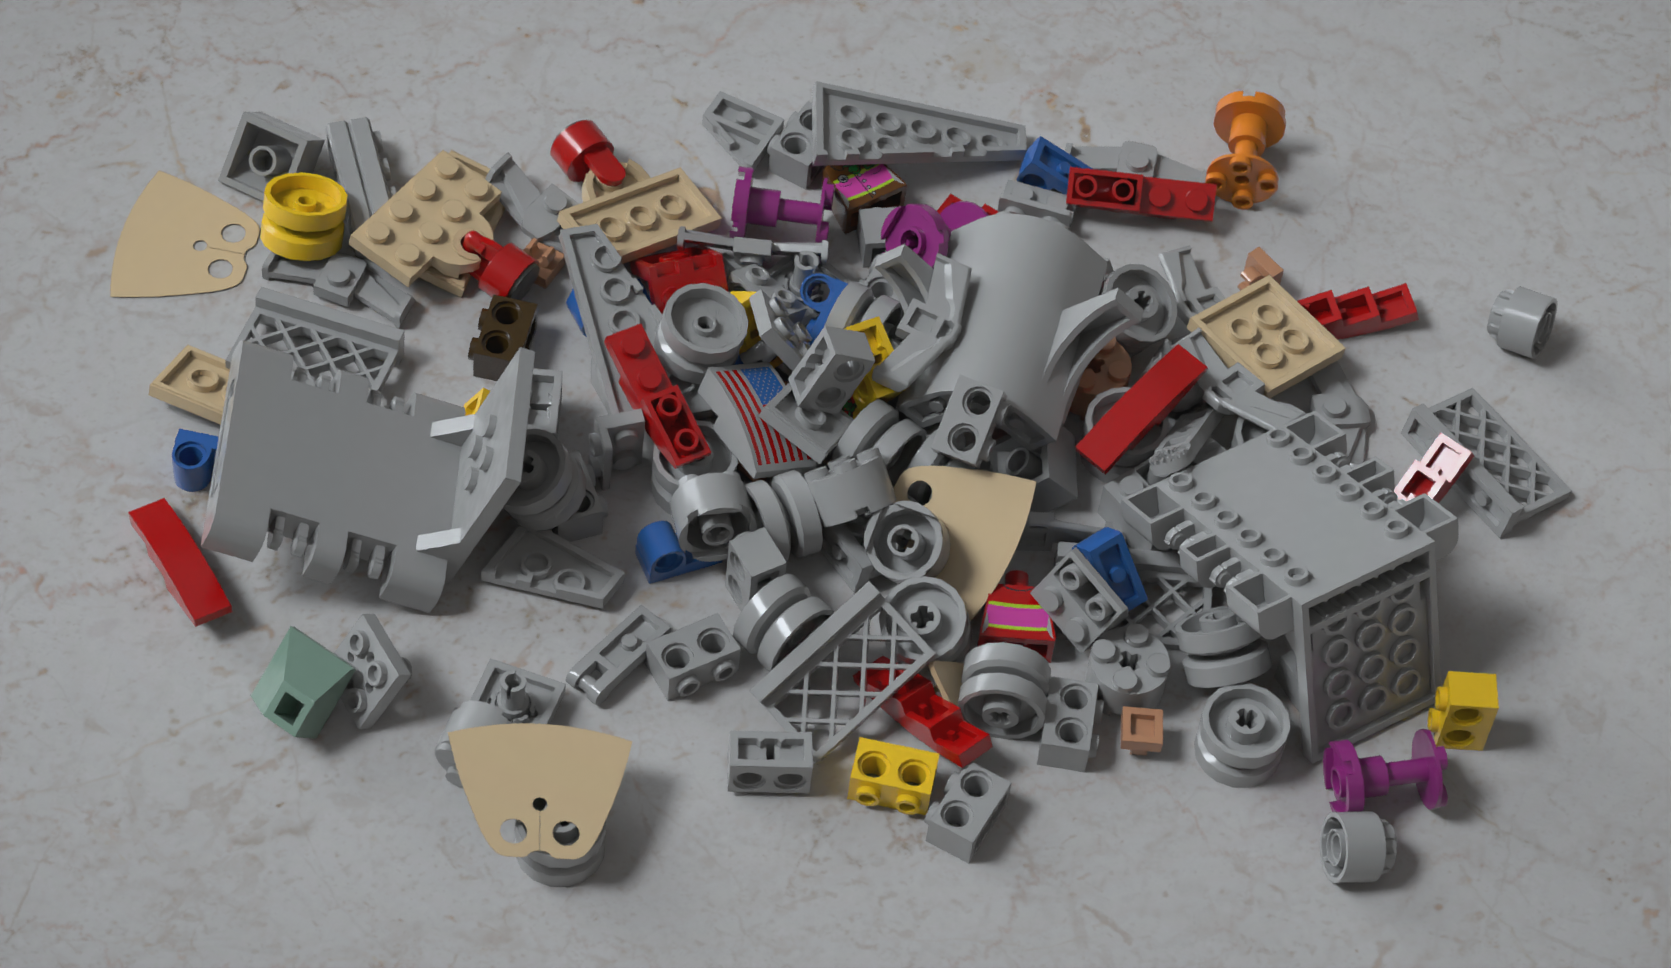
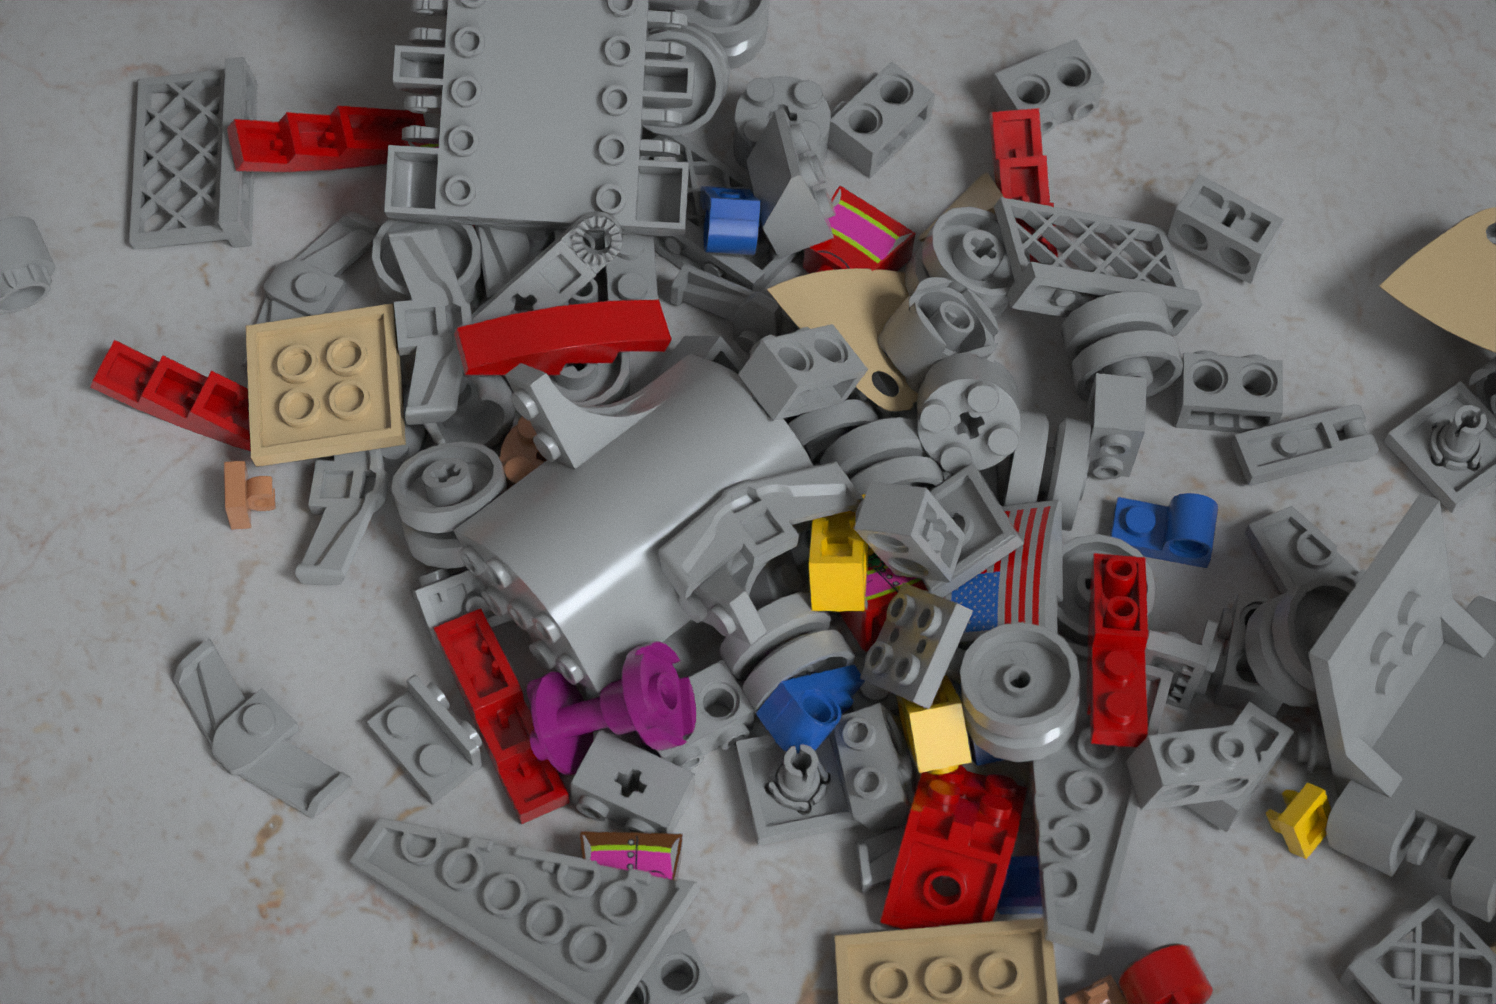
camera: 145 degrees left, 10 degrees up
(503, 330) = (1207, 902): dark brown brick -> none
(568, 348) = (1193, 766): none -> light grey brick
(710, 513) = (1131, 495): light grey brick -> none
(749, 249) = (835, 848): light grey plate -> none
(766, 207) = (778, 895): magenta piece -> none
(894, 767) = (1092, 168): yellow brick -> none
(1004, 690) = (935, 159): light grey wheel -> none
(1047, 166) = (371, 764): blue plate -> none
(1141, 194) = (303, 676): red slope -> none
(1141, 730) = (815, 63): nougat tile -> none
(1248, 127) = (106, 658): orange piece -> none

